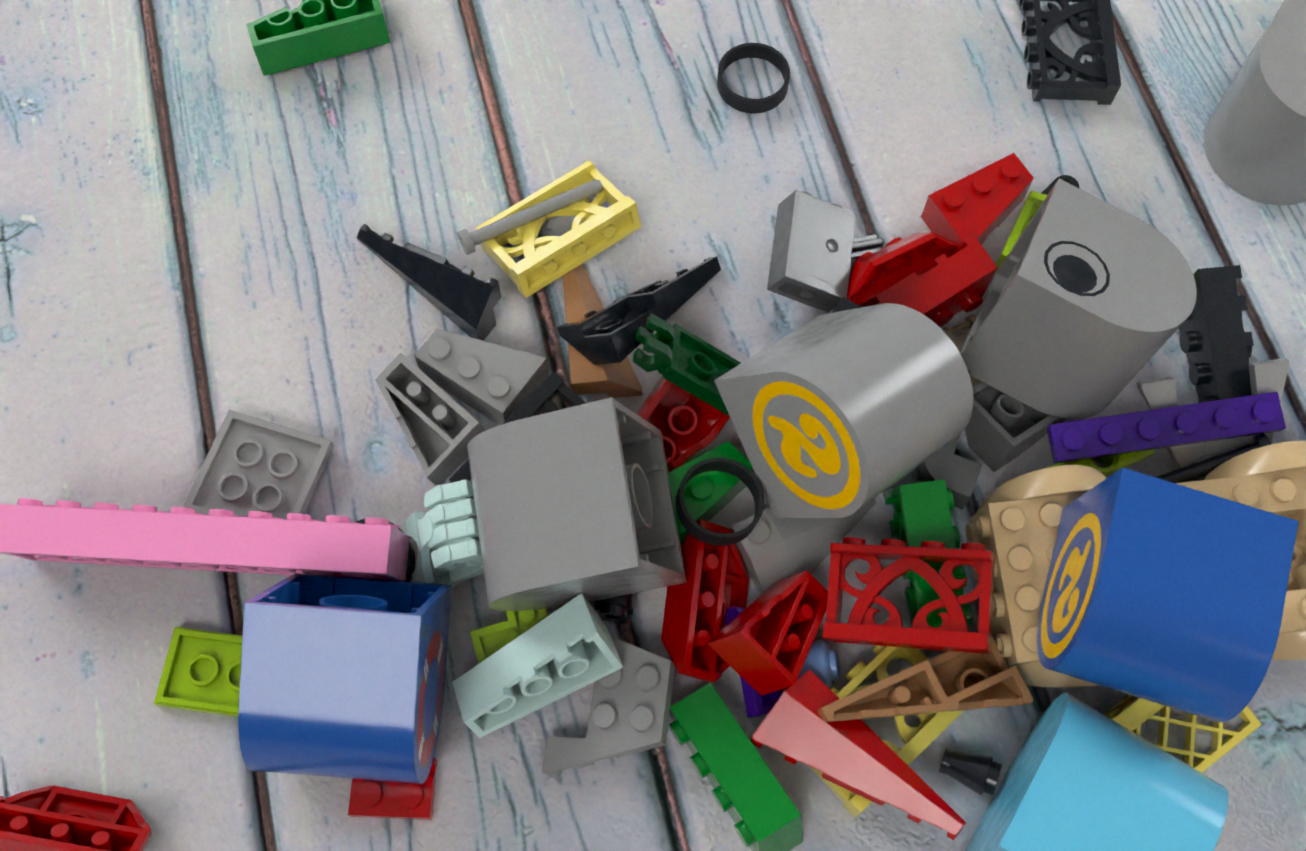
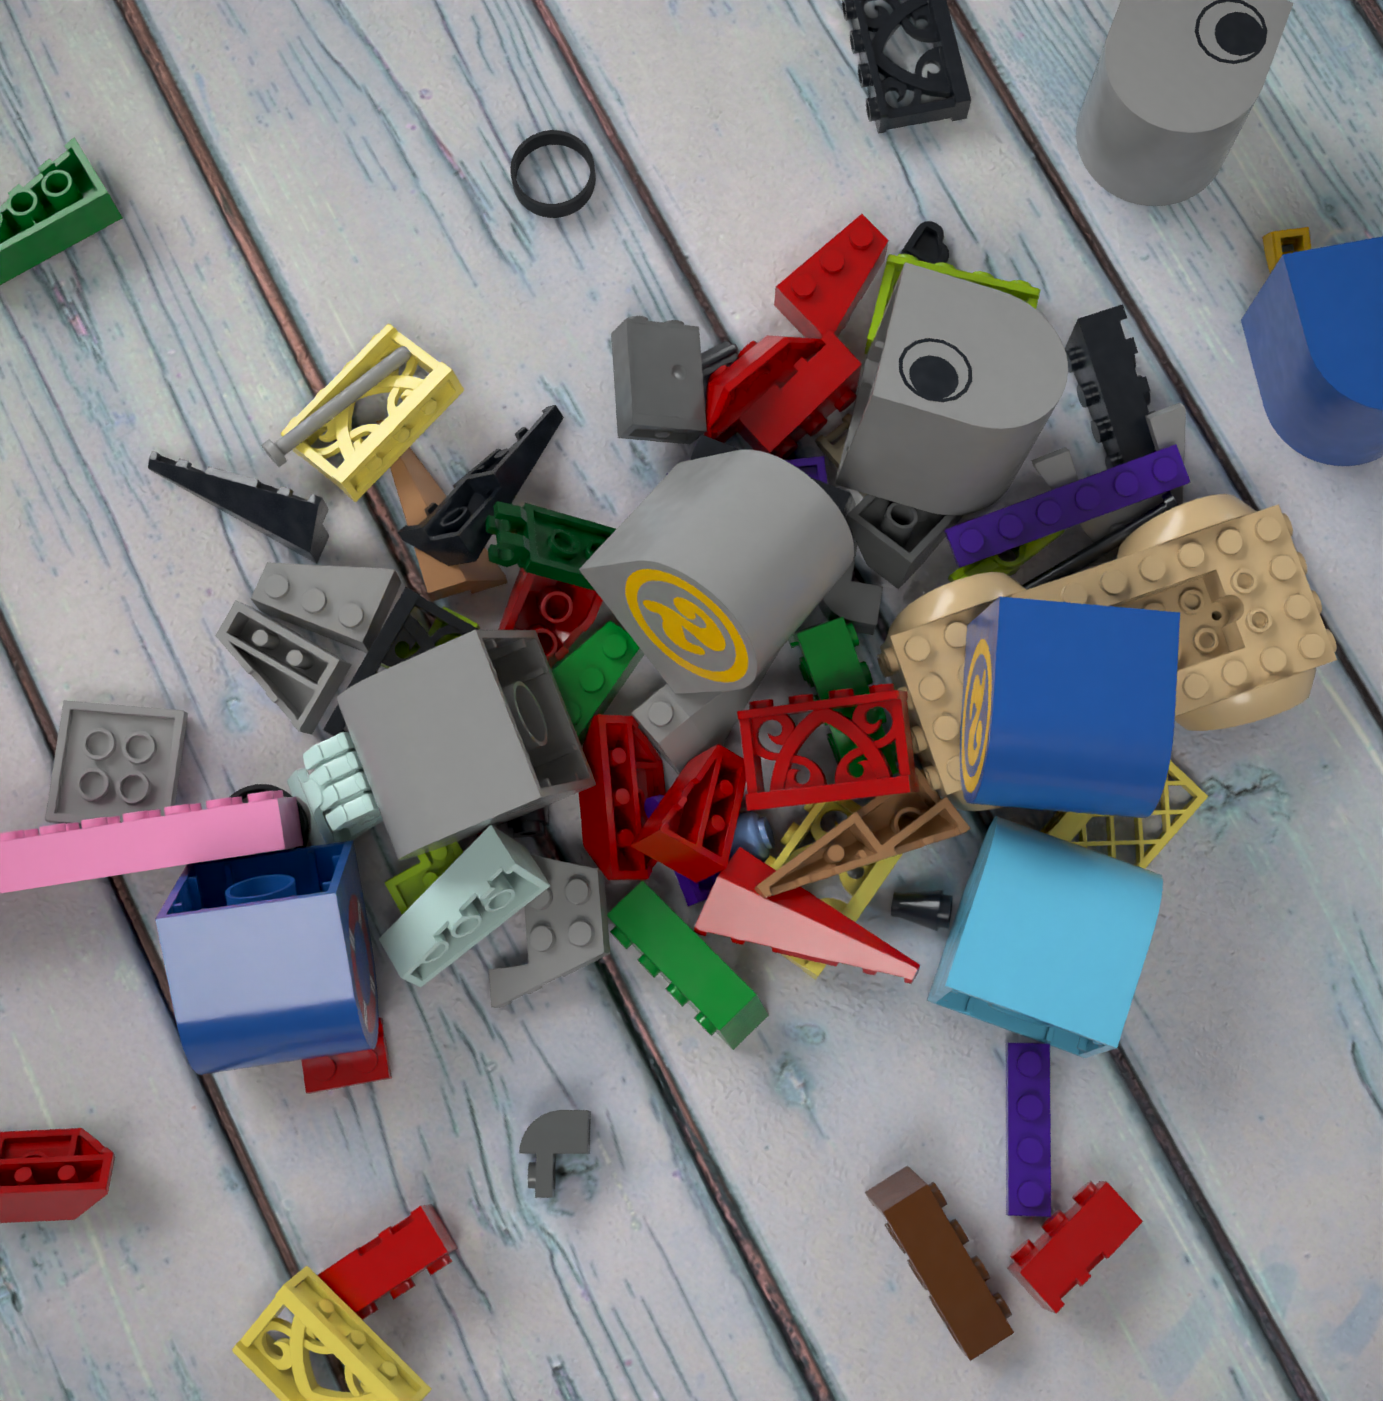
camera: 10 degrees left, 10 degrees up
(201, 672) = (121, 984): lime tile -> none
(735, 469) = (619, 652): black tyre -> none

